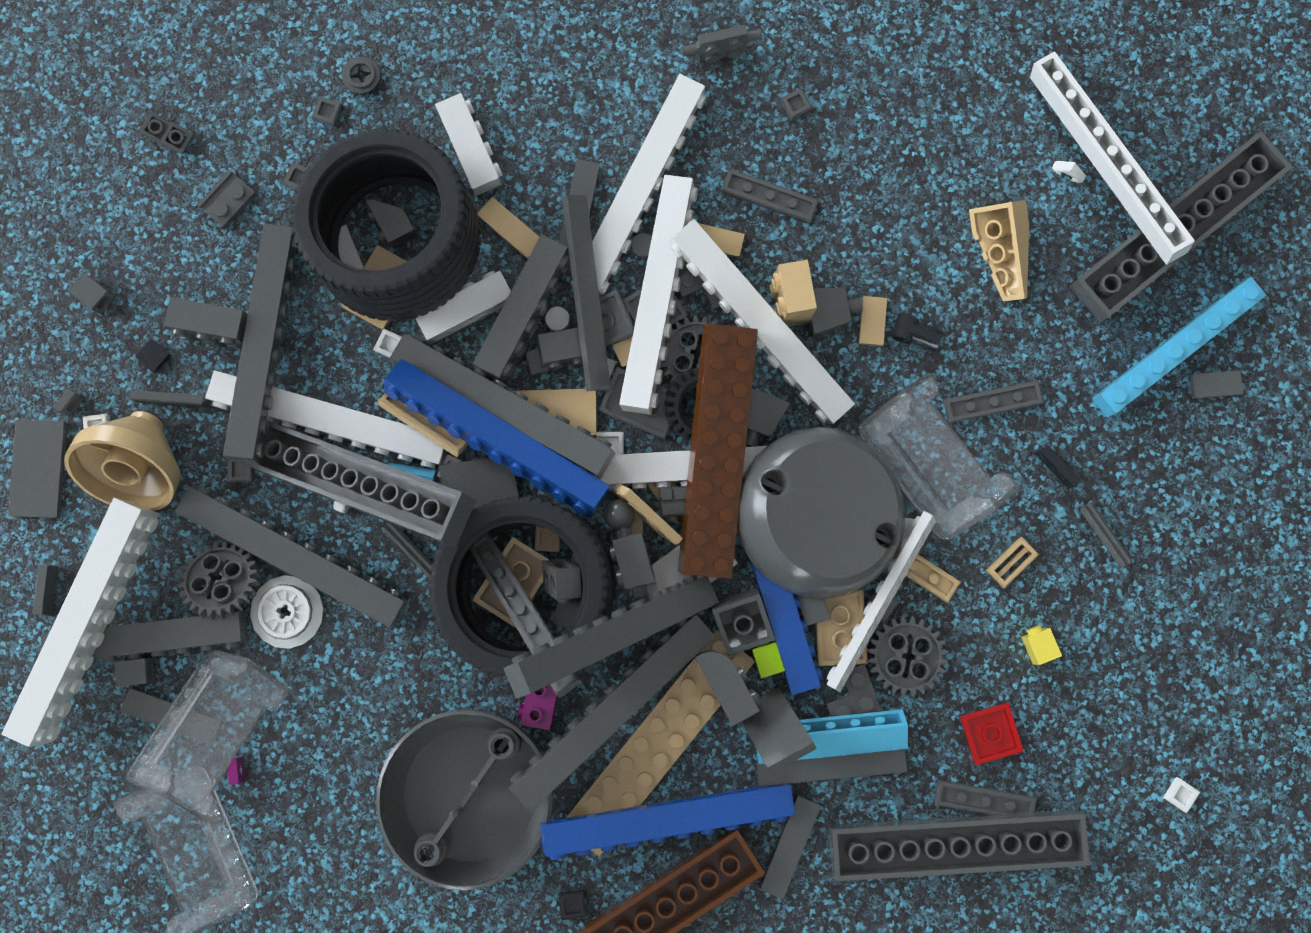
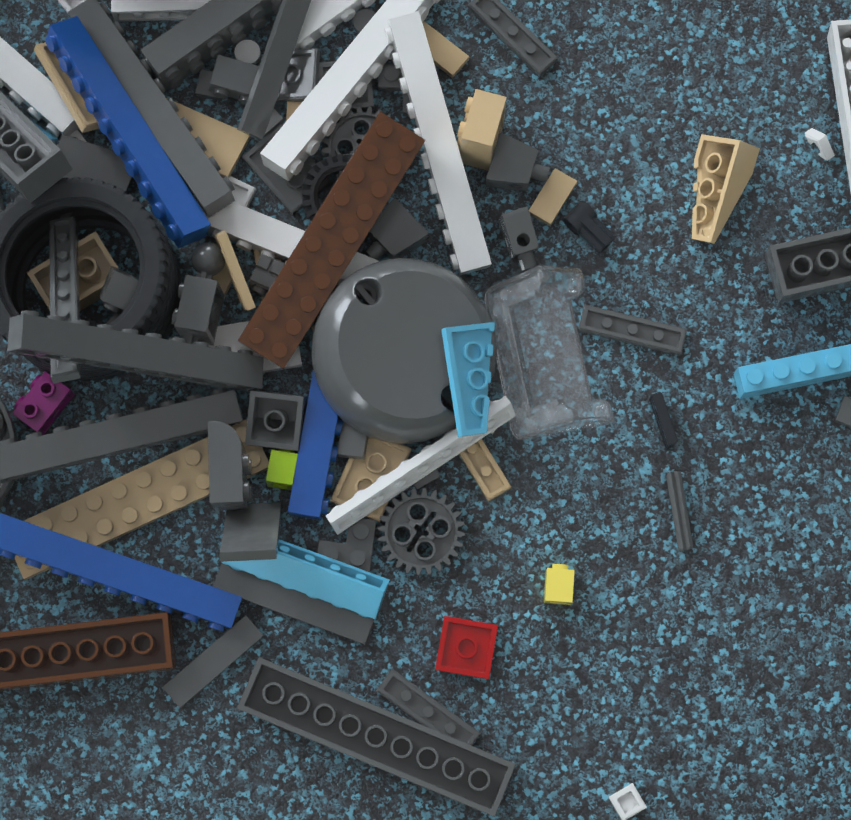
camera: 25 degrees right, 5 degrees down
(546, 540) = (128, 256): tan tile -> none
(859, 362) = (519, 225): none -> dark grey torso
(886, 502) = (468, 365): none -> medium azure wing
(997, 576) = (551, 500): tan tile -> none

